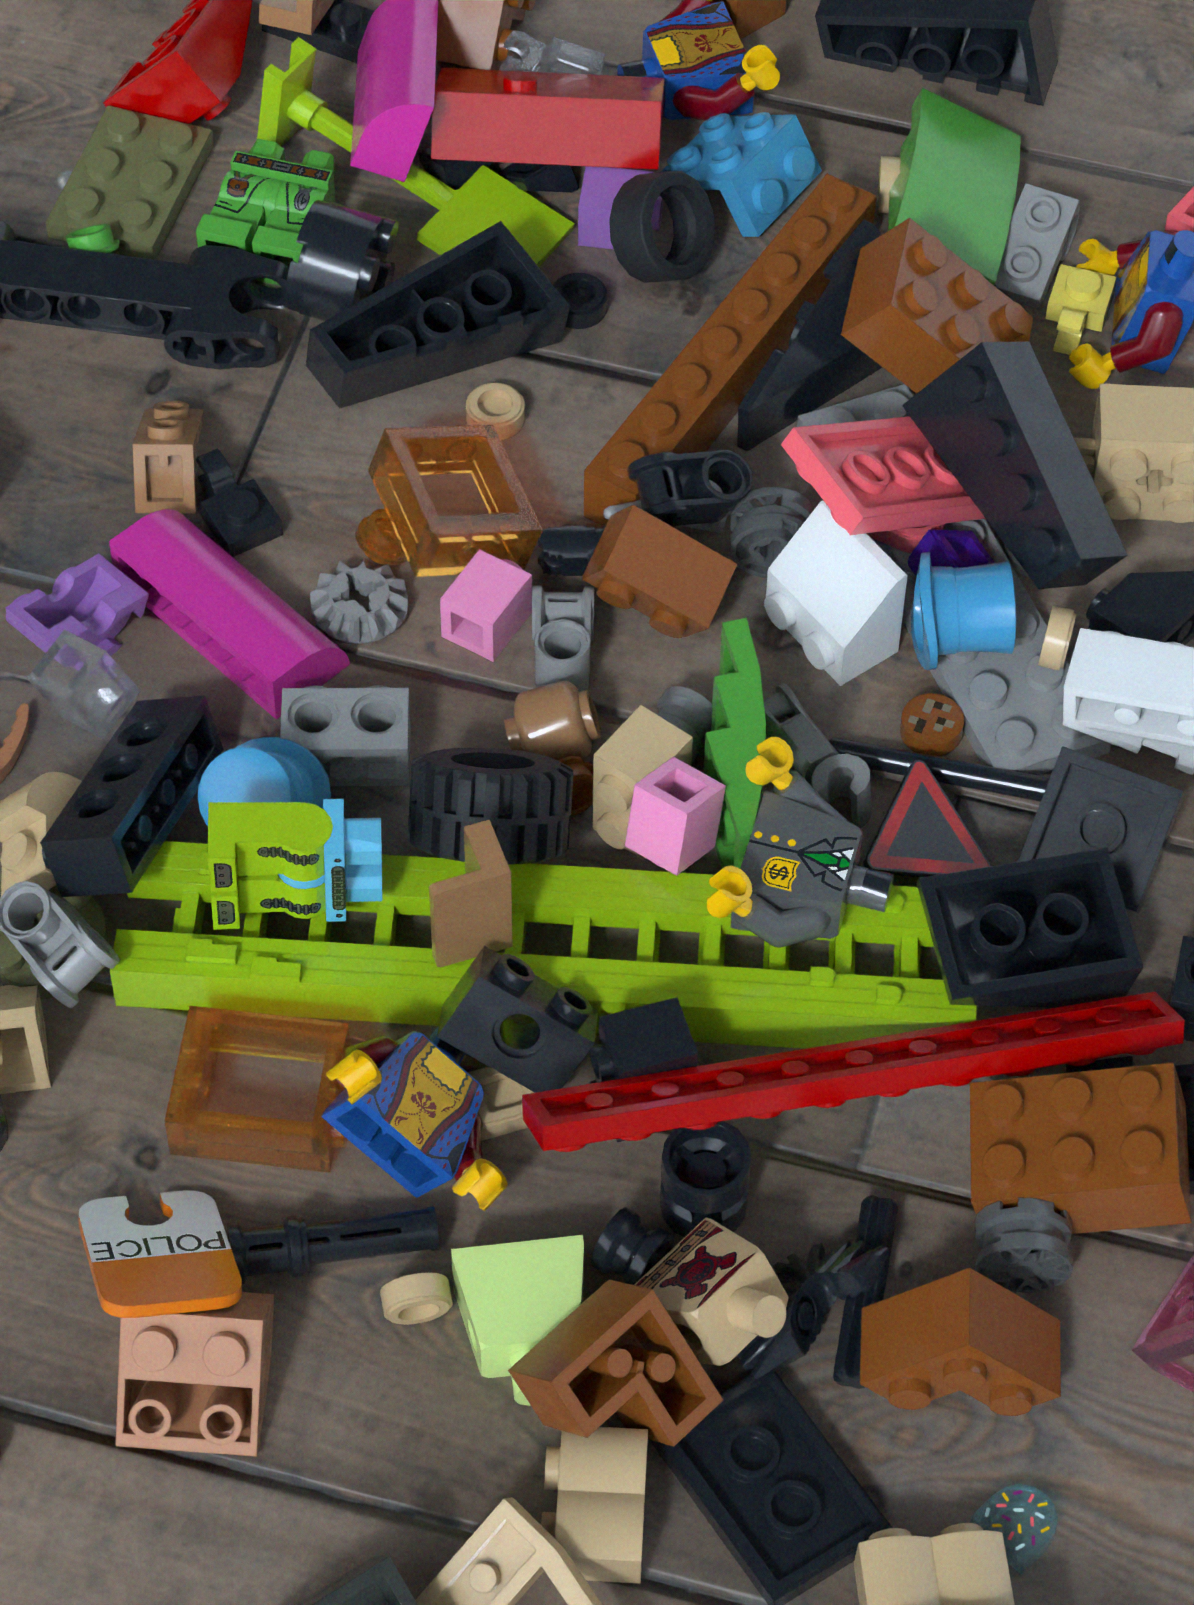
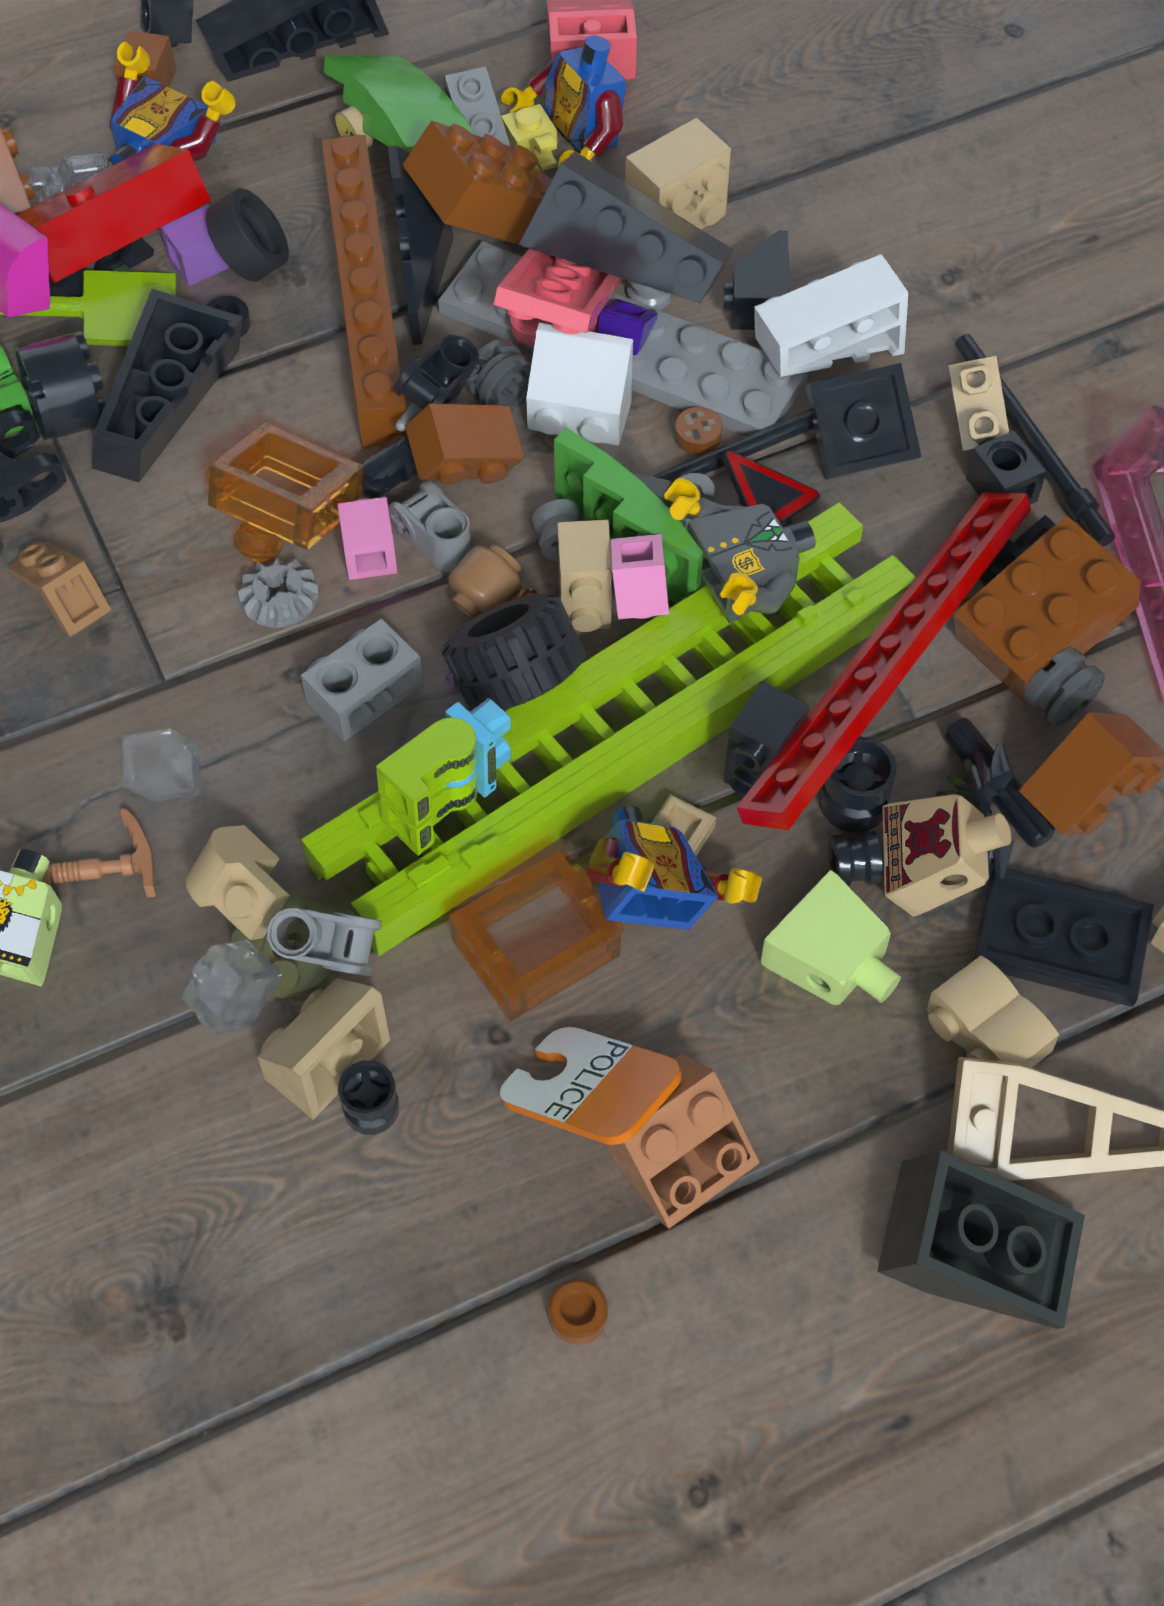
camera: 40 degrees left, 5 degrees up
(85, 600) = (99, 719): medium lavender cylinder -> none
(131, 797) = (279, 812): black brick -> none
(224, 609) = (197, 658): dark pink brick -> none
(233, 512) = (139, 591): black plate -> none
(264, 772) = (349, 745): dark azure piece -> none
(416, 1232) = (653, 1011): black pin -> none
(416, 1298) = (761, 988): tan tile -> none
(474, 906) = (585, 704): medium nougat panel -> none
(497, 406) = (241, 417): tan tile -> none
(531, 1054) = (665, 771): black brick -> none
(619, 1358) = (937, 930): dark orange brick -> none
(754, 163) = (256, 160): dark azure bracket -> none
(962, 610) = (670, 345): dark azure piece -> none
(1032, 932) = (899, 499): black slope -> none
(1057, 638) = (734, 326): tan tile -> none

